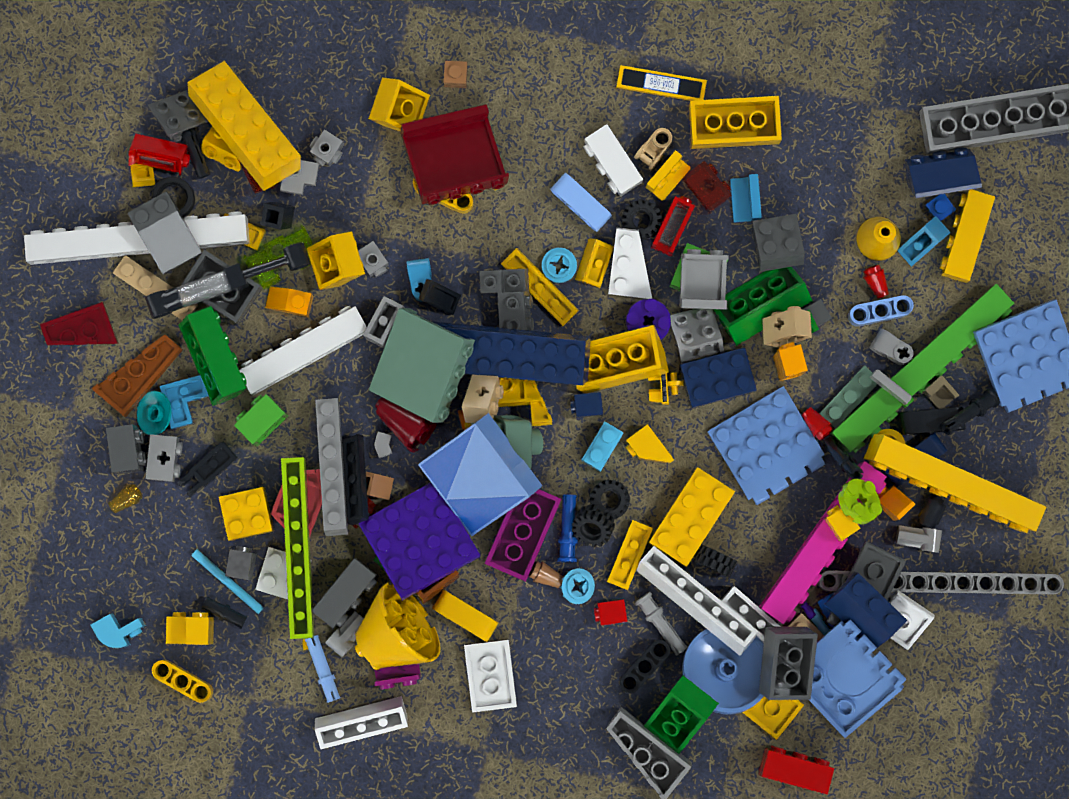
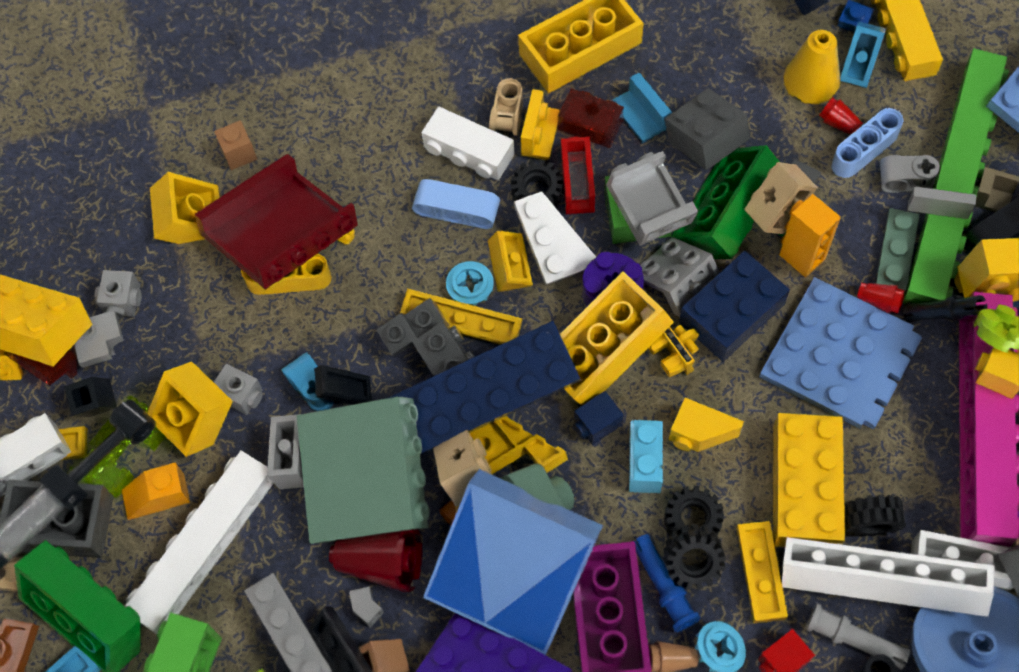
camera: 25 degrees left, 20 degrees down
(661, 83) = (472, 49): tile -> none

